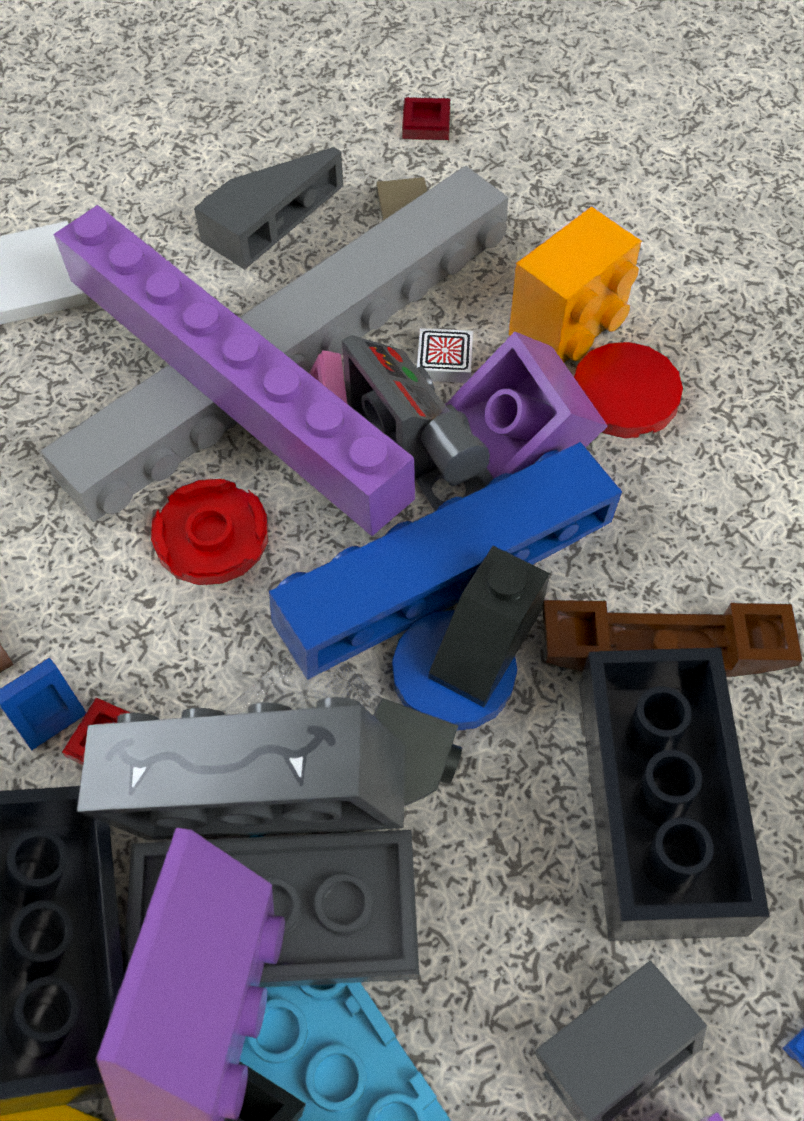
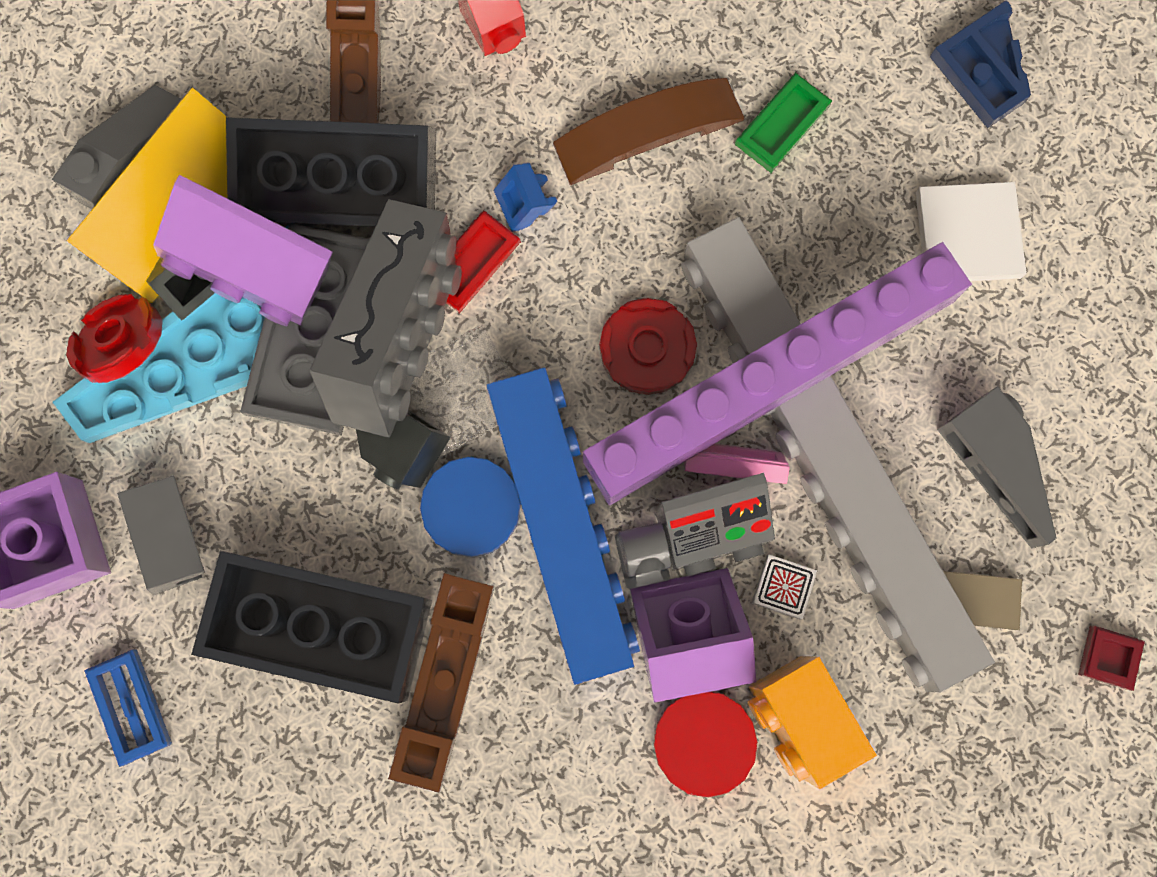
camera: 105 degrees right, 20 degrees up
(489, 625) = (481, 535): pearl dark grey slope -> none

